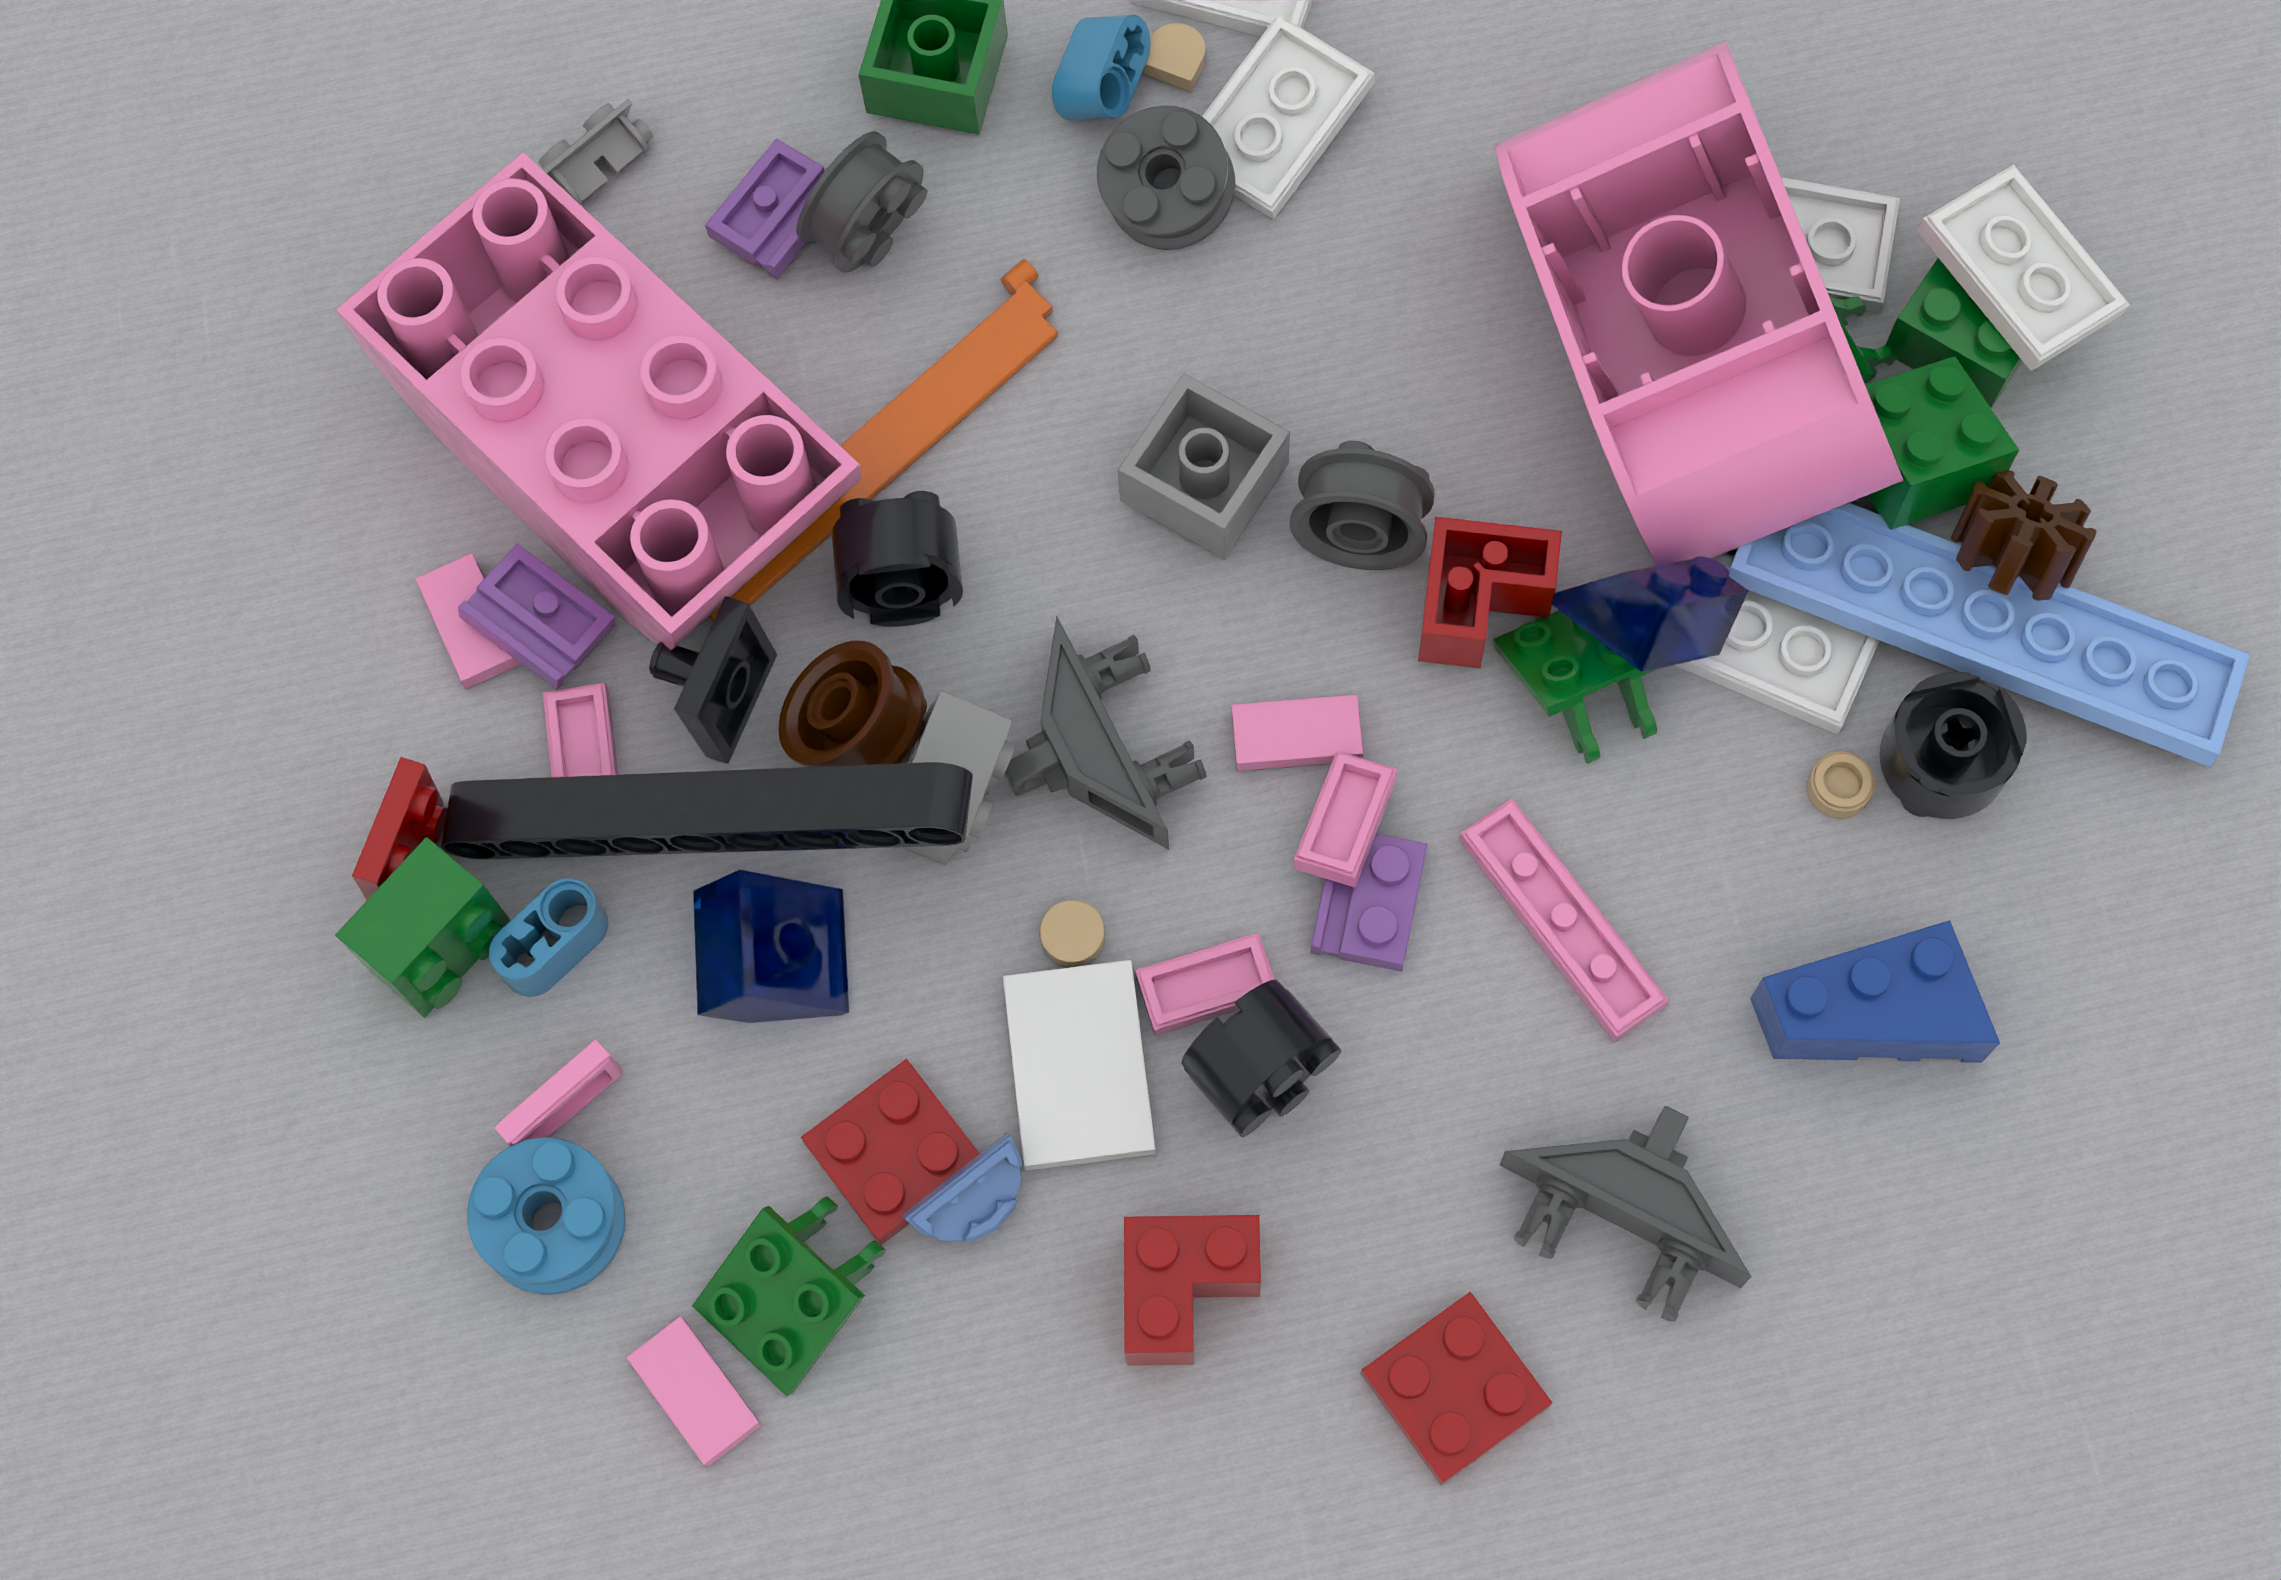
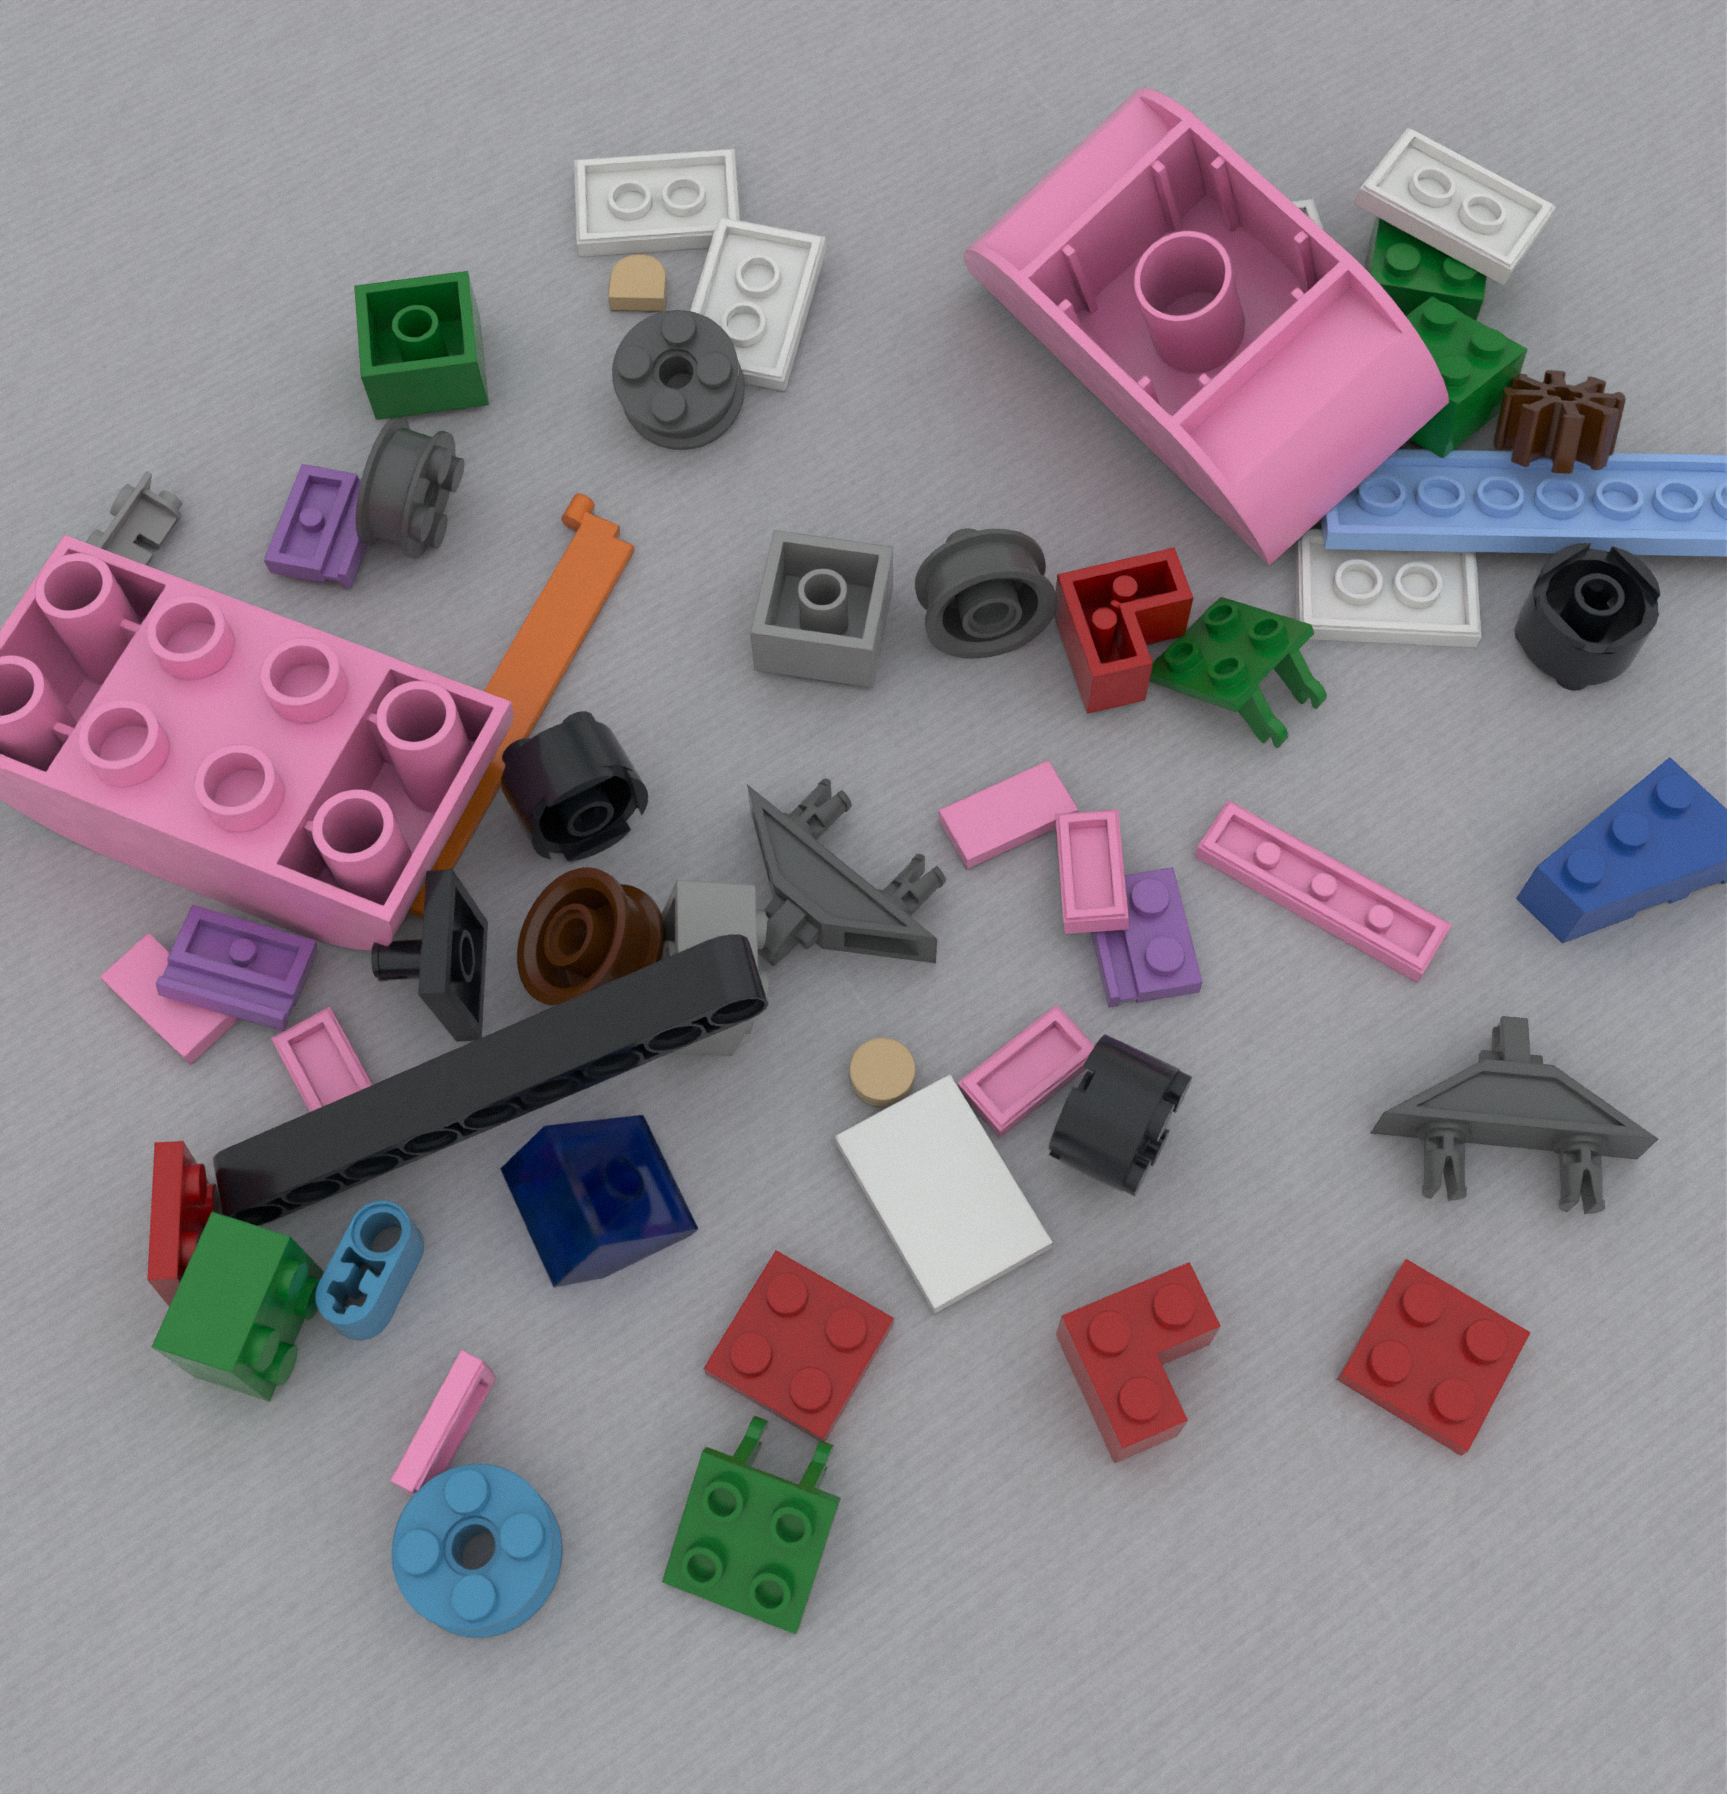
camera: 25 degrees left, 5 degrees down
(694, 1391) = (700, 1669): bright pink tile -> none
(973, 1198) = (900, 1358): medium blue plate -> none
(1101, 67) = (579, 310): dark azure beam -> none
(1659, 611) = (1290, 585): clear blue slope -> none
(1840, 784) = (1503, 686): tan tile -> none

